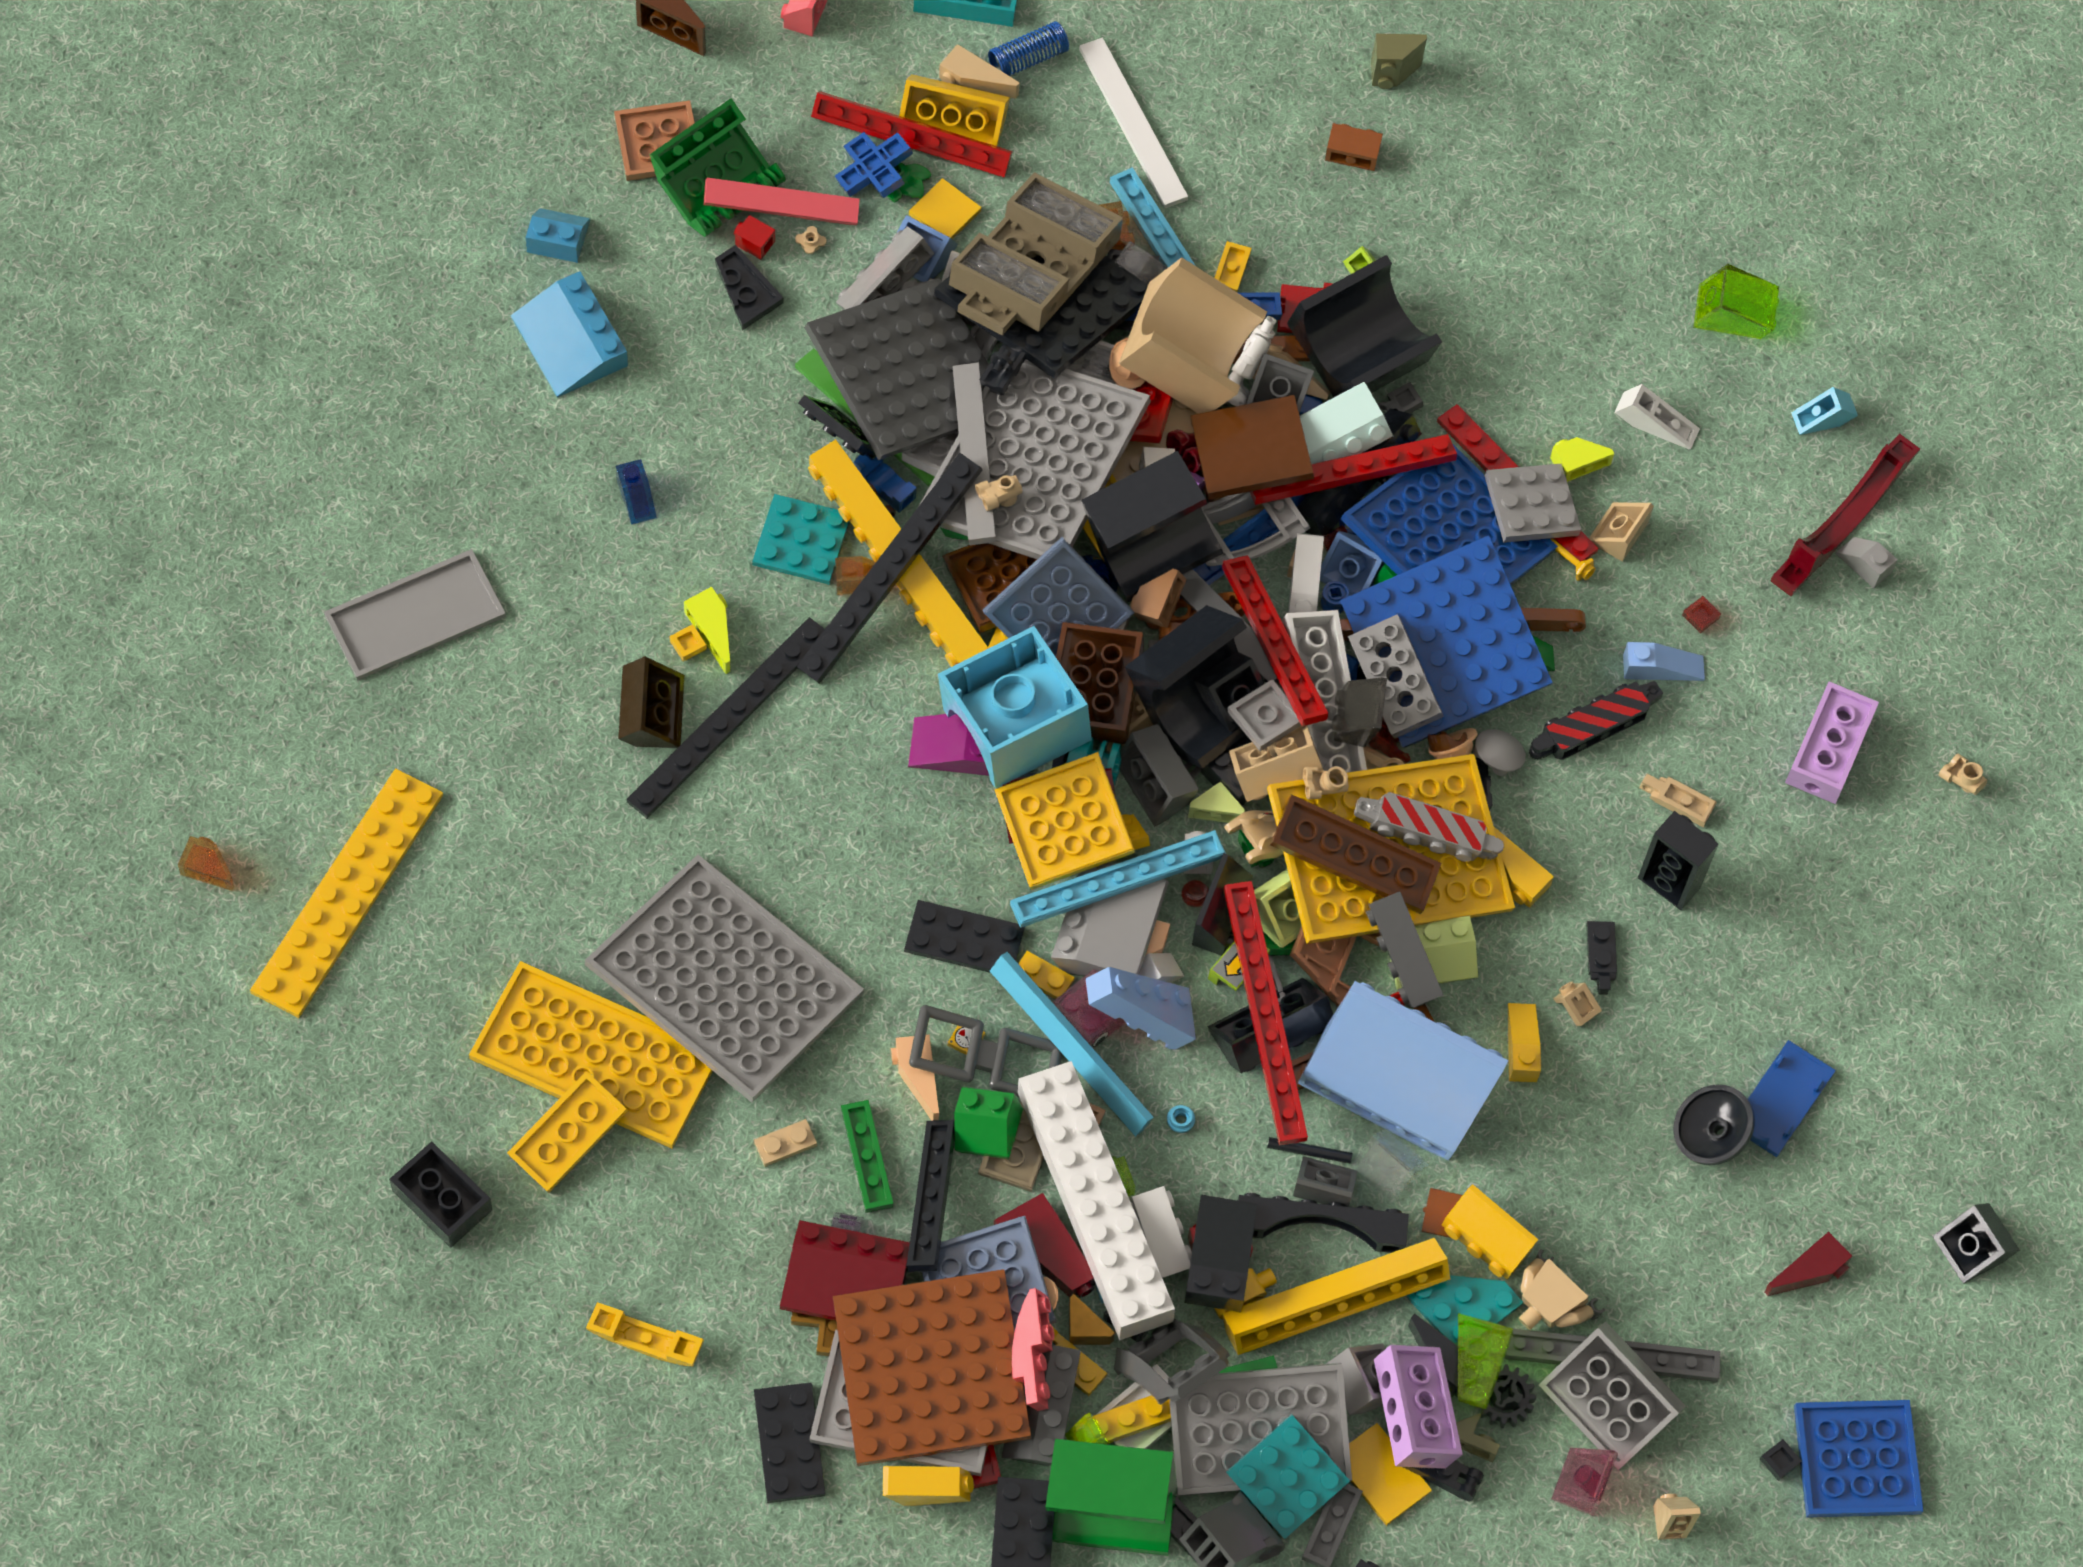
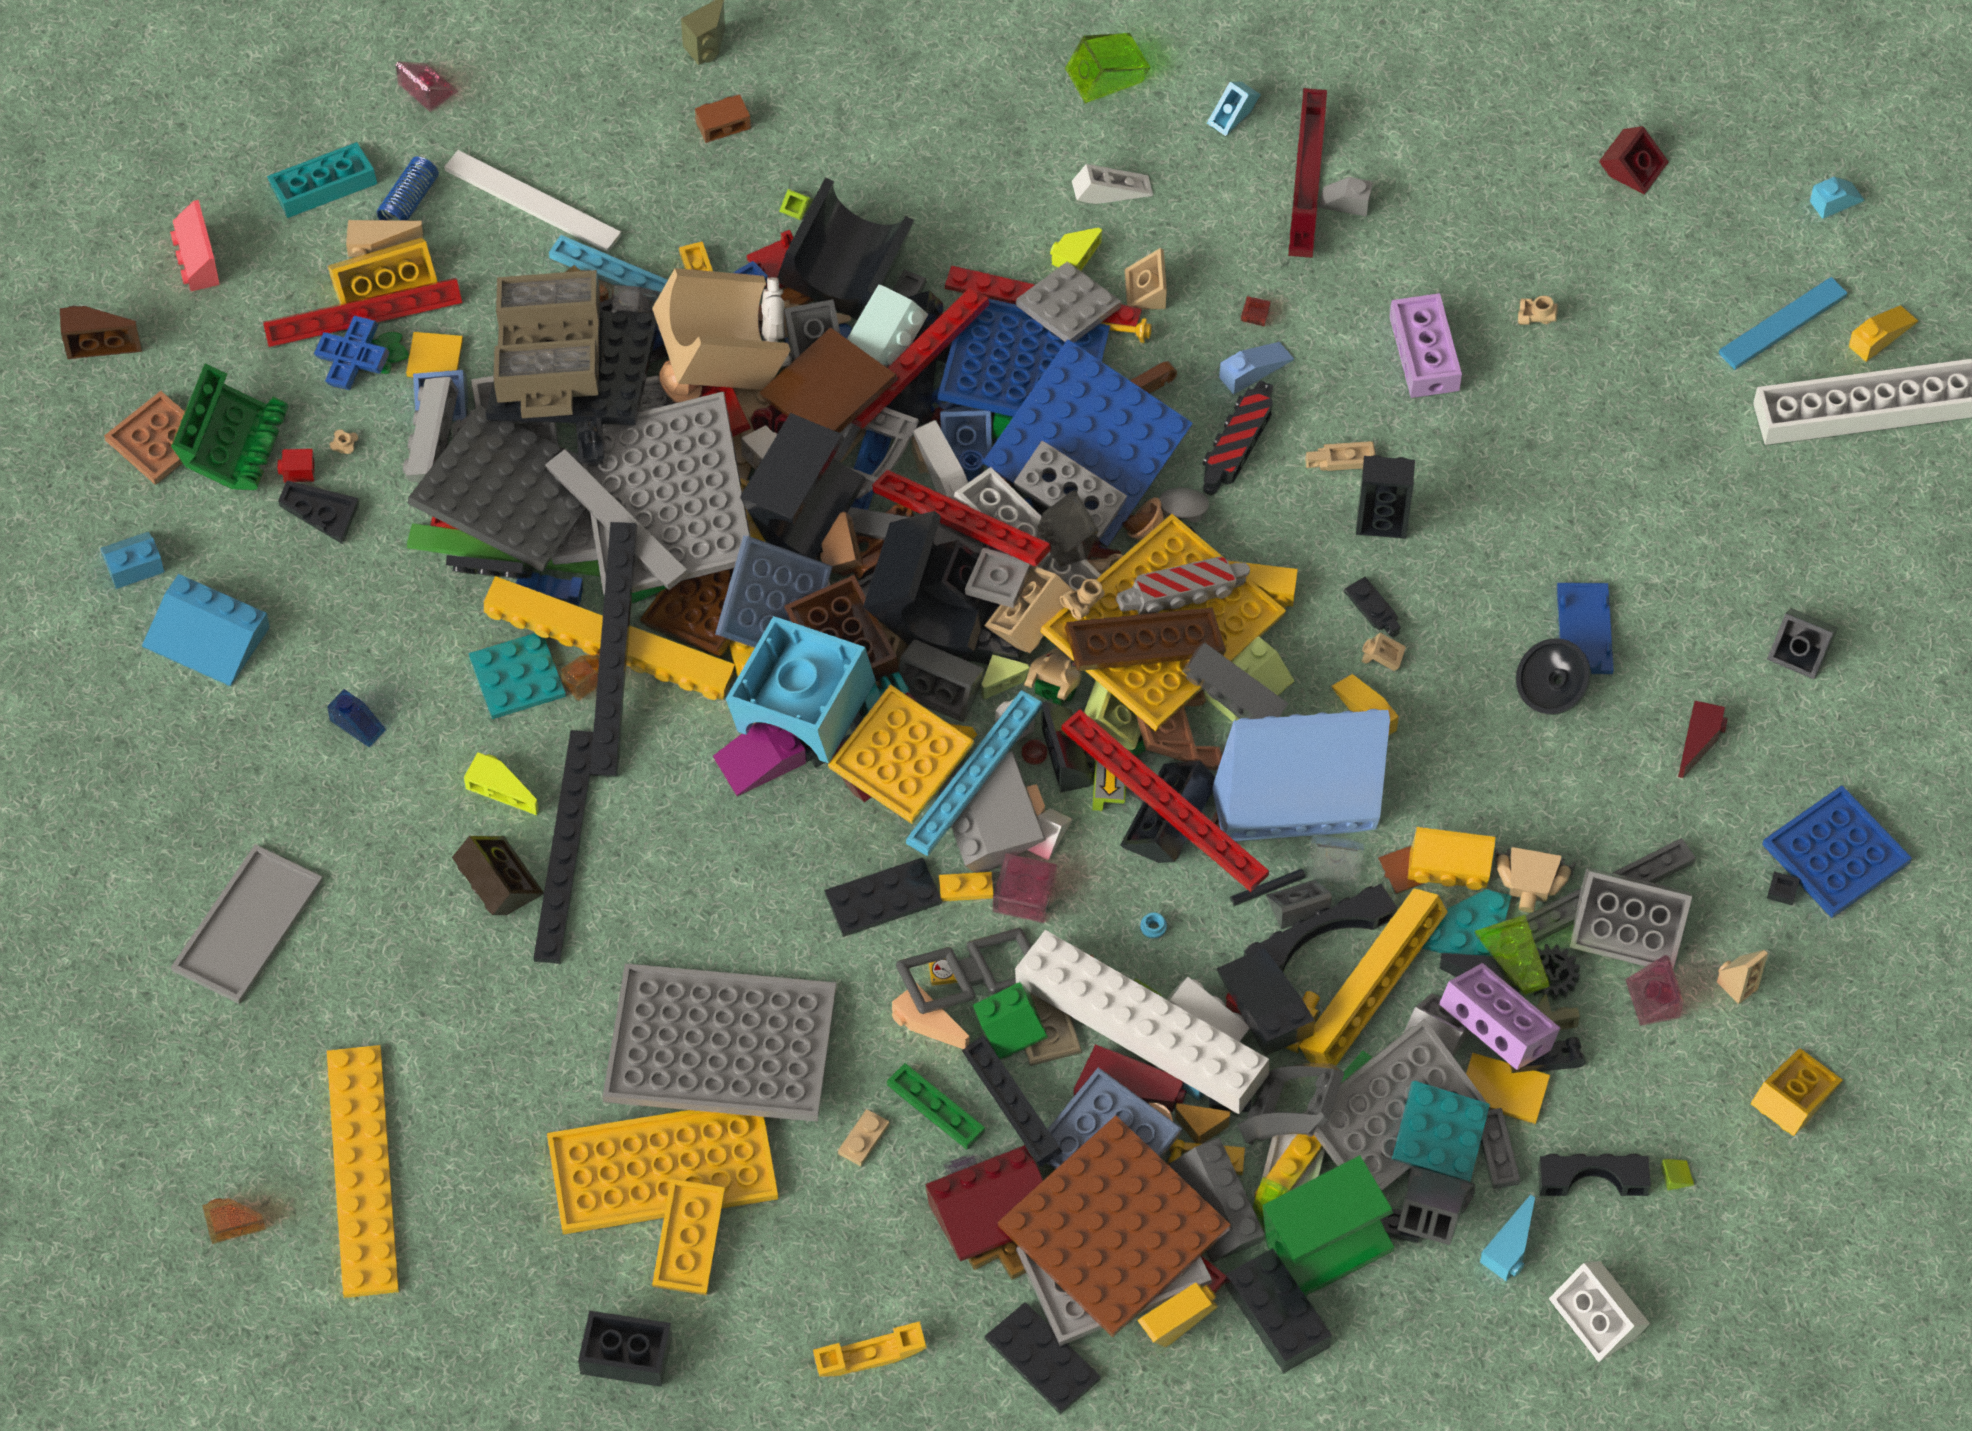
camera: 30 degrees left, 5 degrees down
(688, 642) = (488, 808): yellow plate -> none
(781, 201) = (299, 424): coral tile -> none
(999, 492) = (663, 534): tan plate -> none
(1031, 1339) = (1178, 1153): coral slope -> none
(1071, 1044) = (1028, 920): medium azure tile -> none
(1145, 1004) = (1068, 853): light blue wedge -> none

